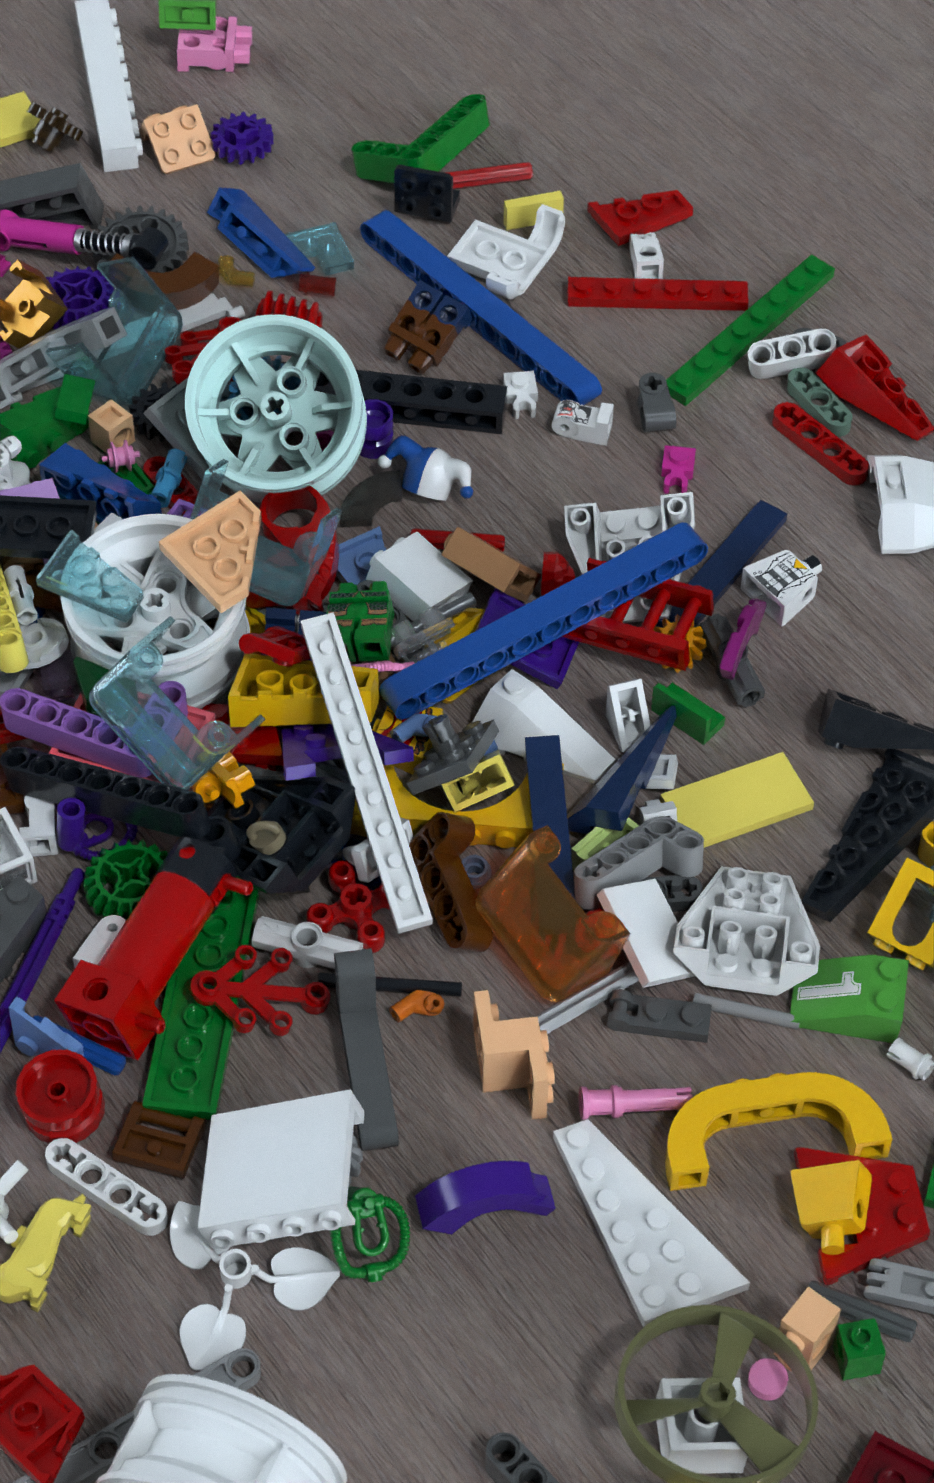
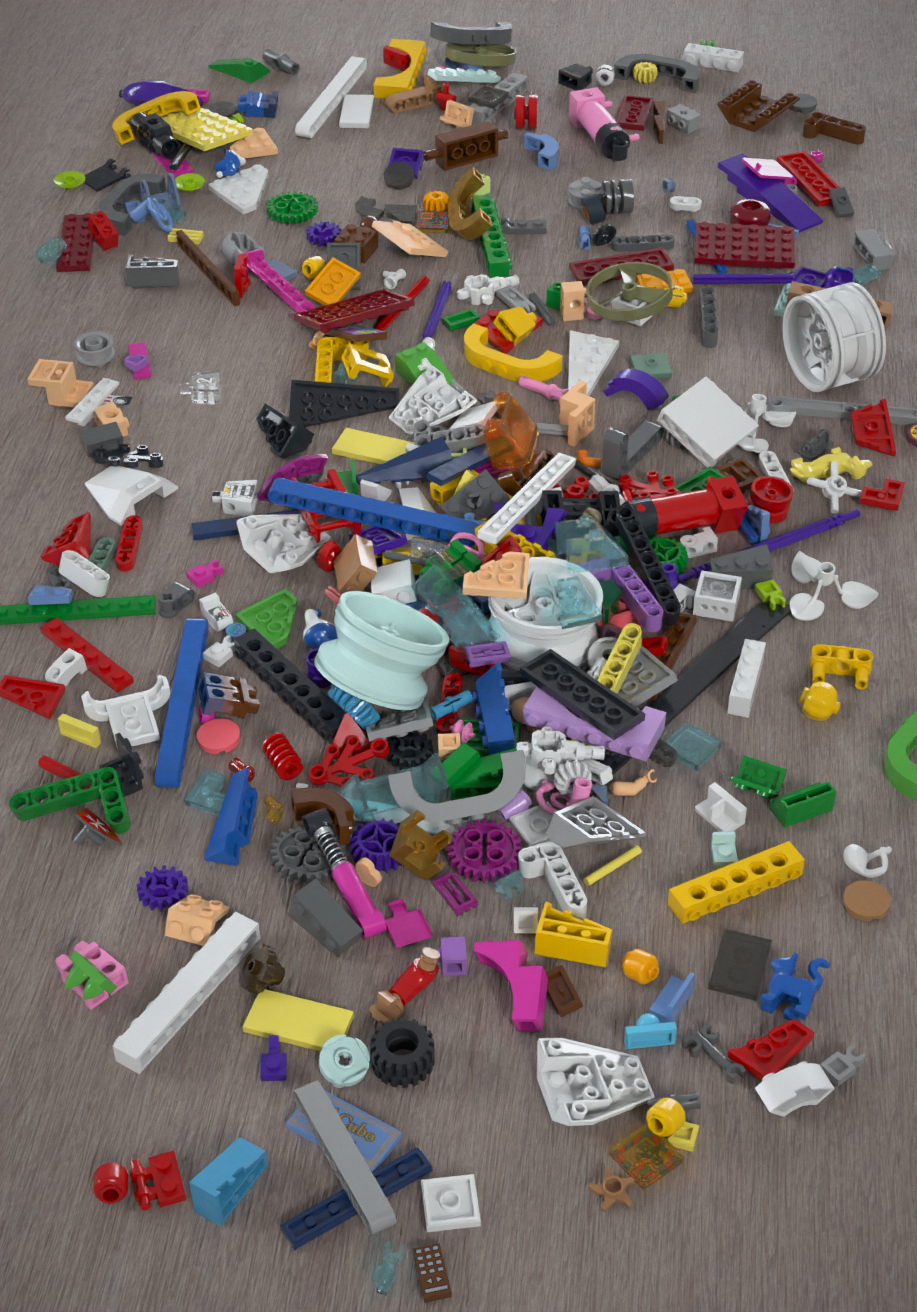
camera: 135 degrees left, 10 degrees down
(58, 264) = (367, 872): none -> light nougat tile
(94, 1305) = (816, 445): none -> dark grey hinge
(376, 125) = (95, 829): none -> shield
(385, 301) = (218, 736): none -> coral tile
(514, 458) = (271, 617): none -> bright green plate
(534, 1305) = (654, 364): none -> sand green plate
(536, 423) = (235, 630): none -> medium blue tile
(790, 310) = (50, 595): none -> medium blue wing

